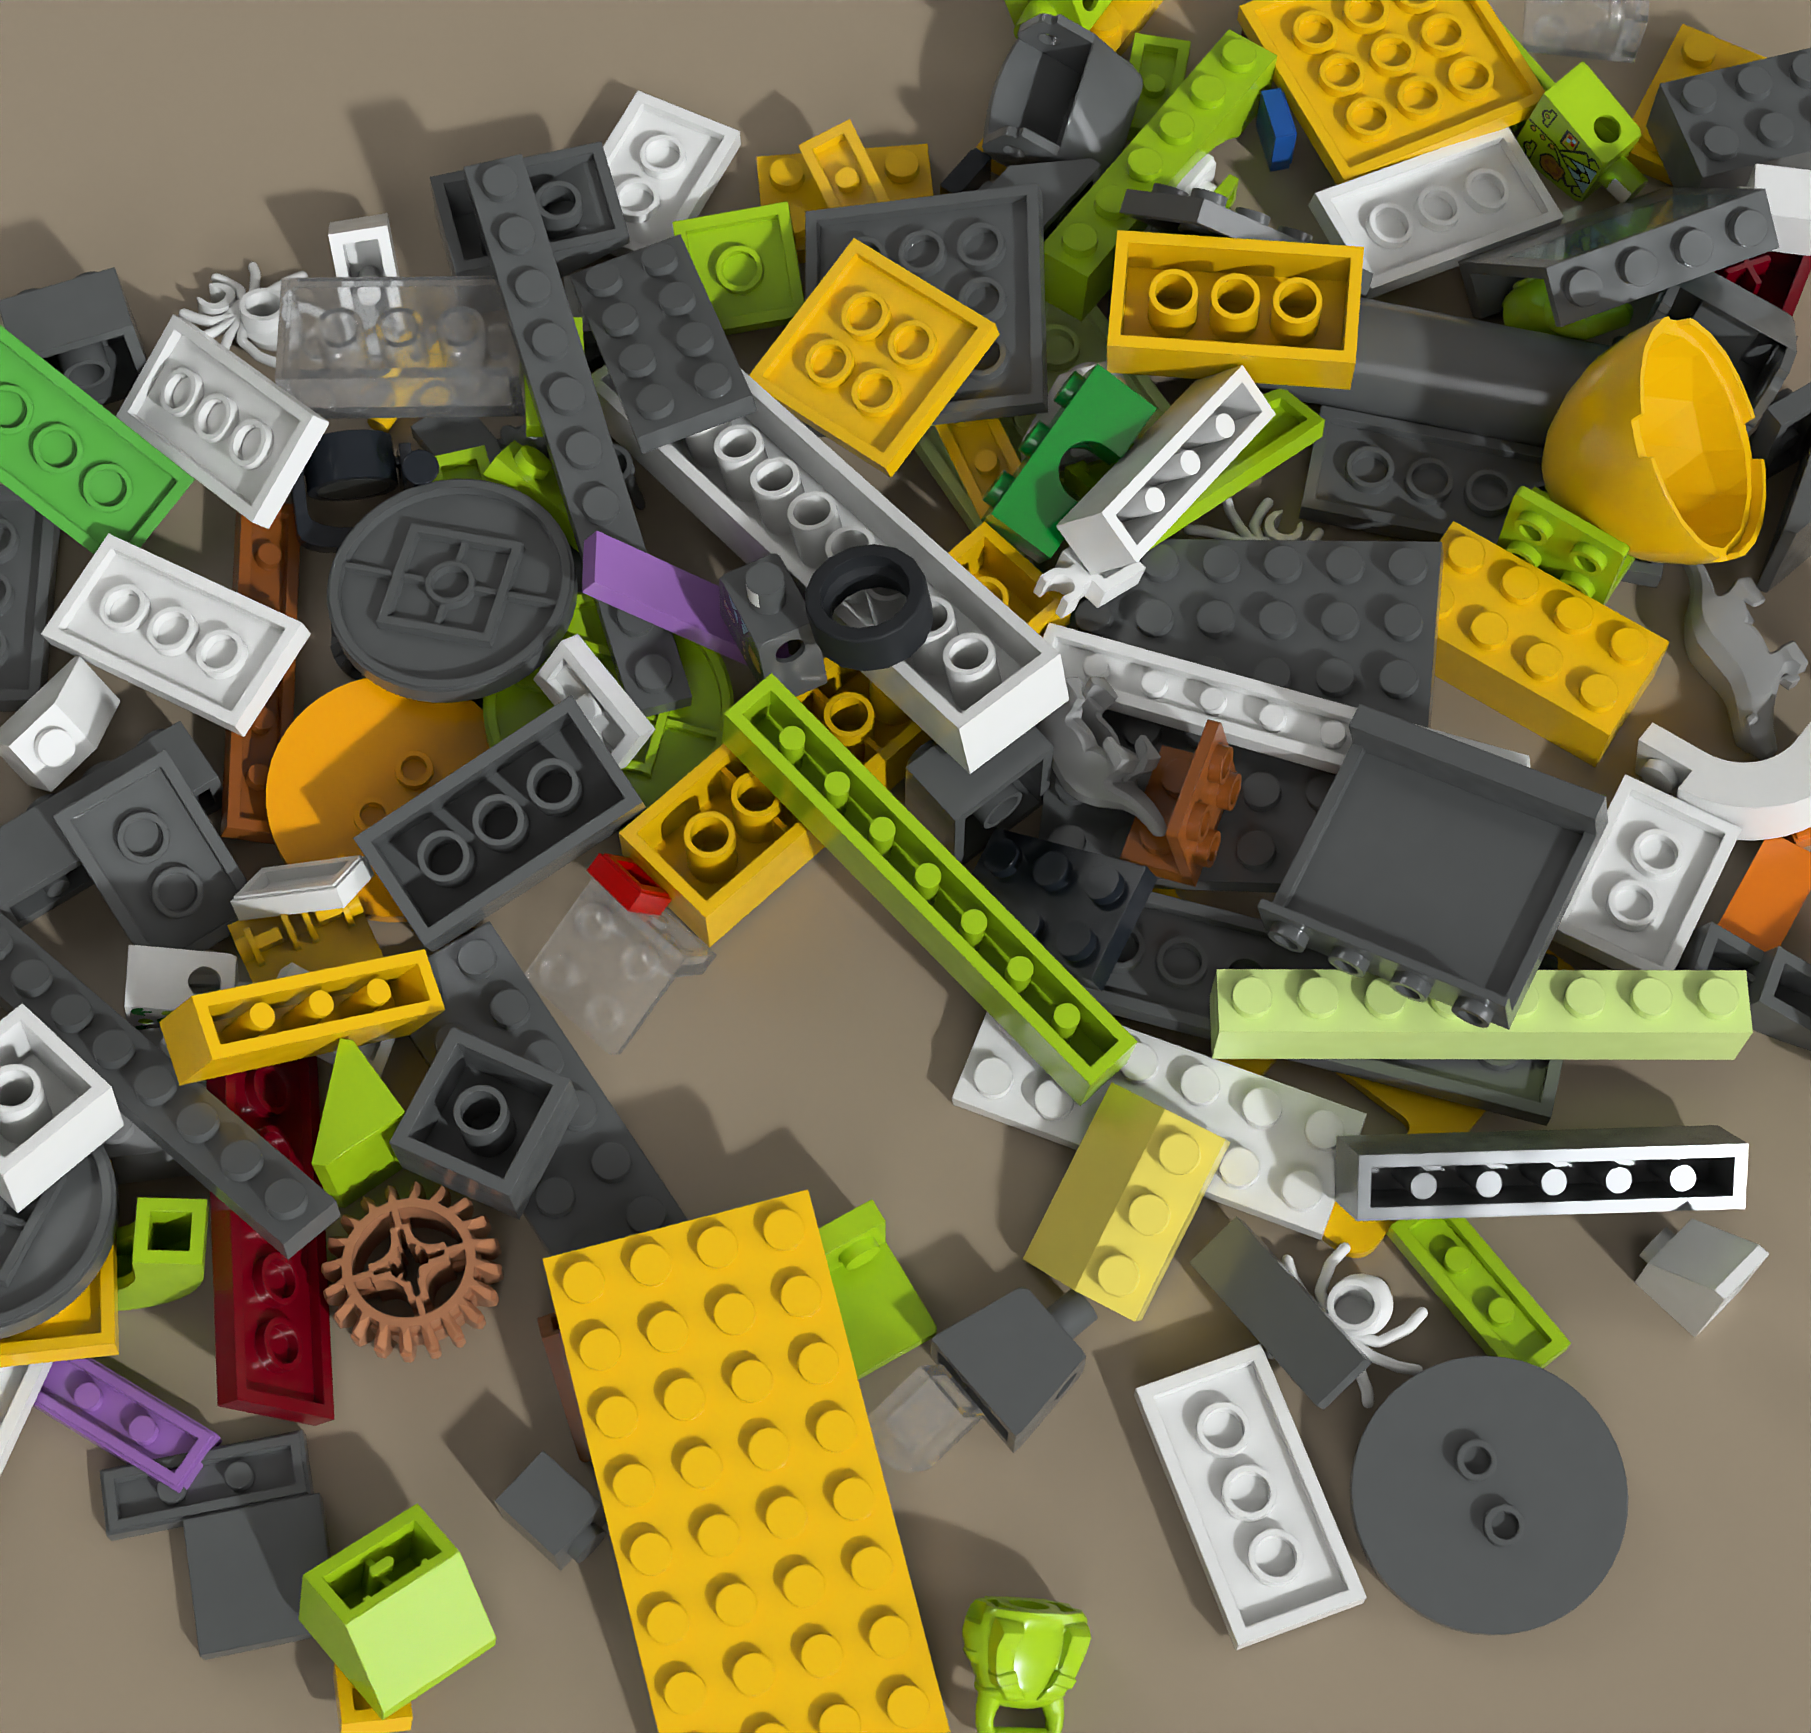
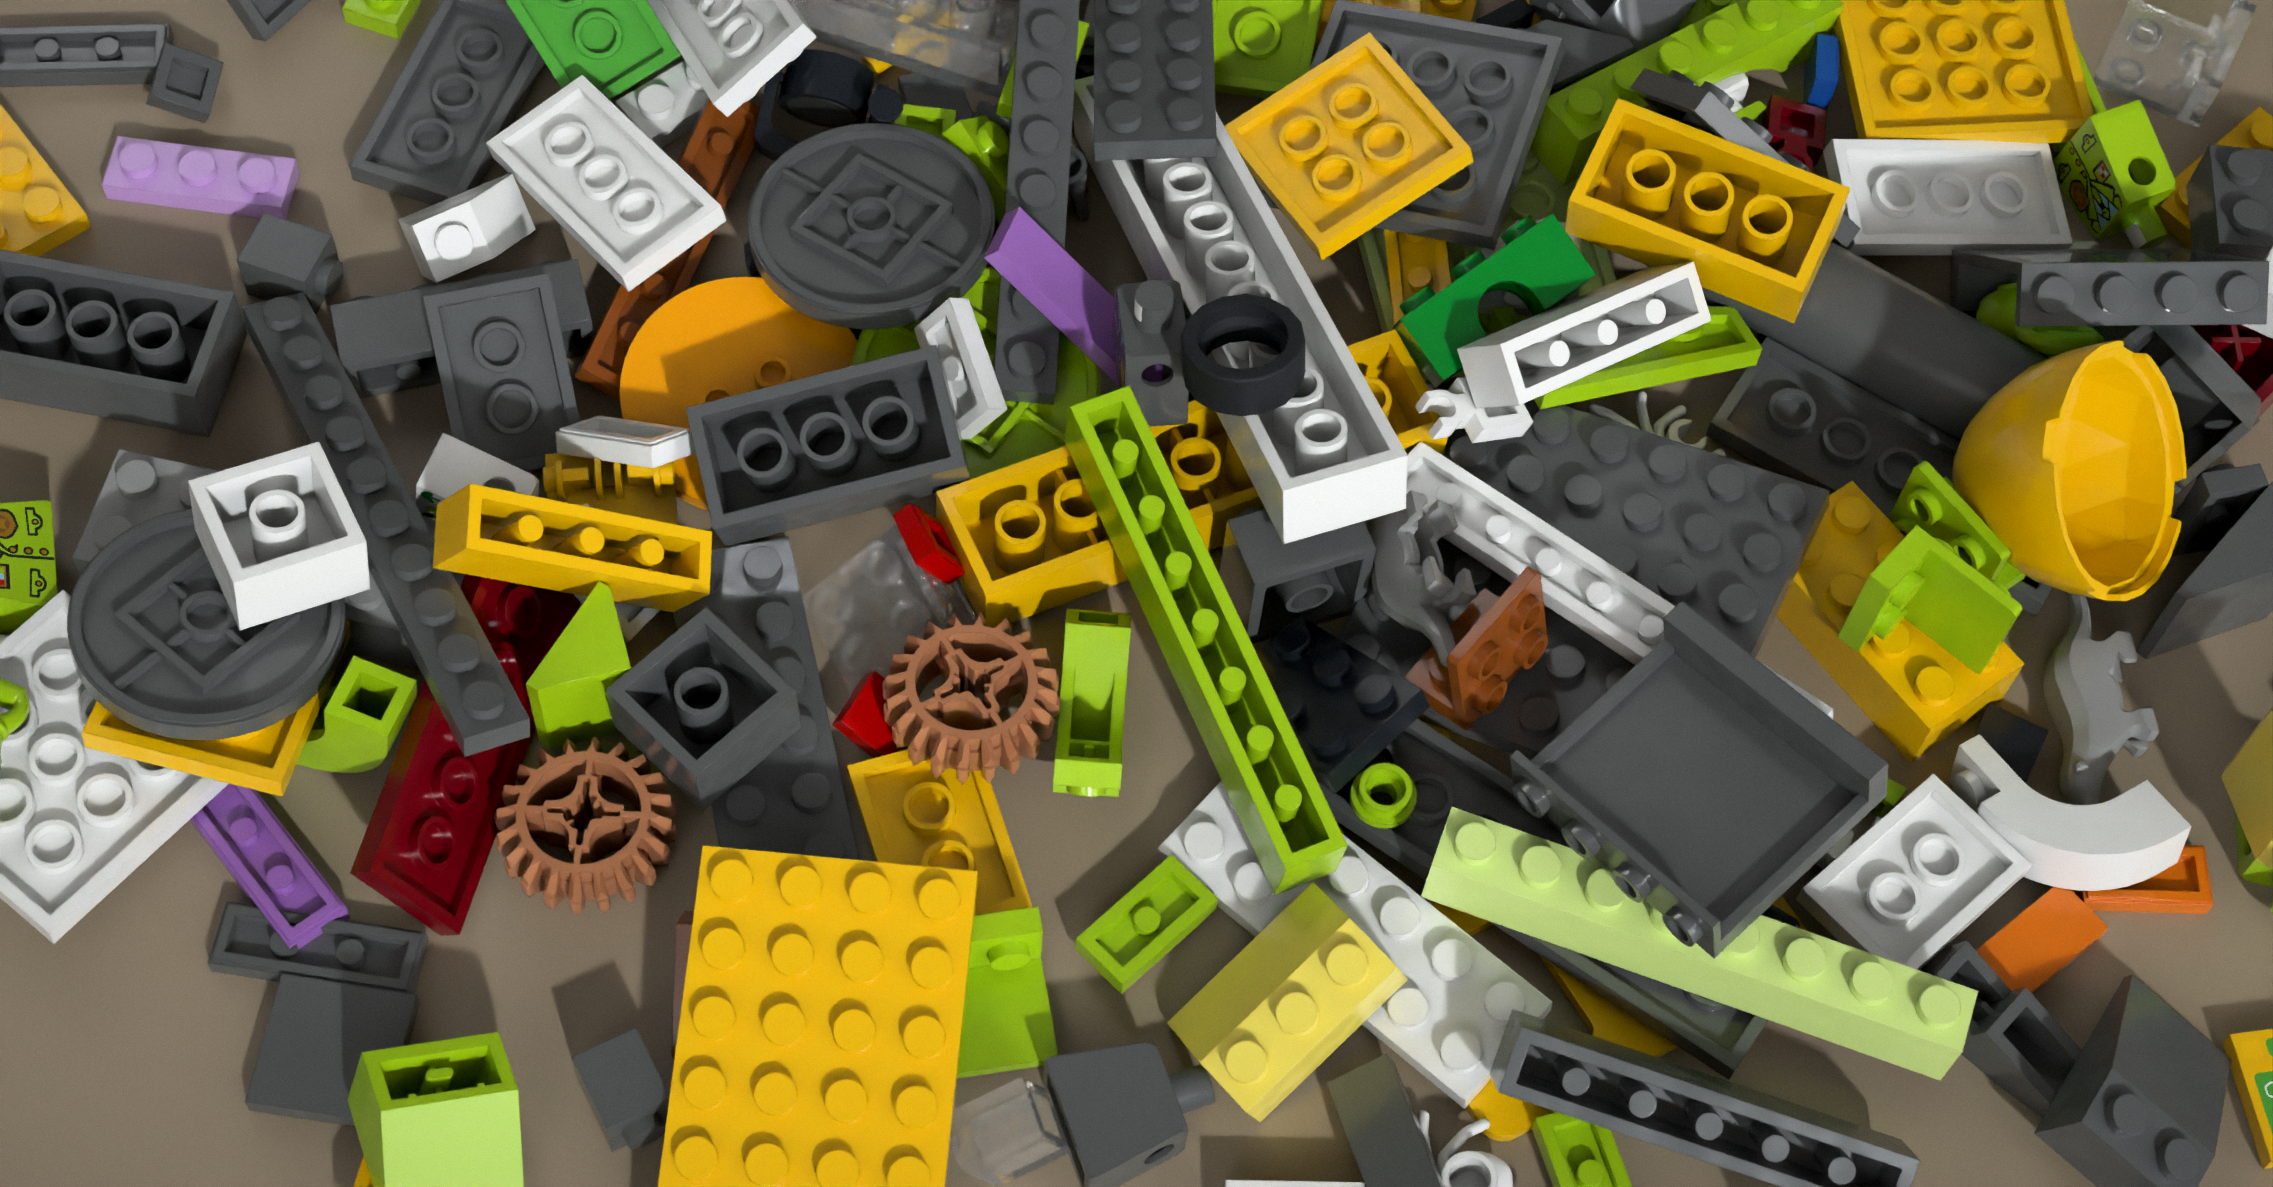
camera: 15 degrees right, 5 degrees down
(196, 532) = (665, 104): none -> white plate
(643, 1067) = (864, 718): none -> red tile
(698, 986) = (965, 727): none -> nougat gear
(739, 1145) = (938, 824): none -> yellow plate
(840, 984) = (1092, 703): none -> lime arch
(969, 1173) = (1146, 924): none -> lime plate
(1150, 960) = (1387, 779): none -> lime plate
(1274, 192) = (1796, 129): none -> dark red plate
(1581, 612) = (1938, 596): none -> lime bracket
(1677, 712) = (2012, 738): none -> black tile

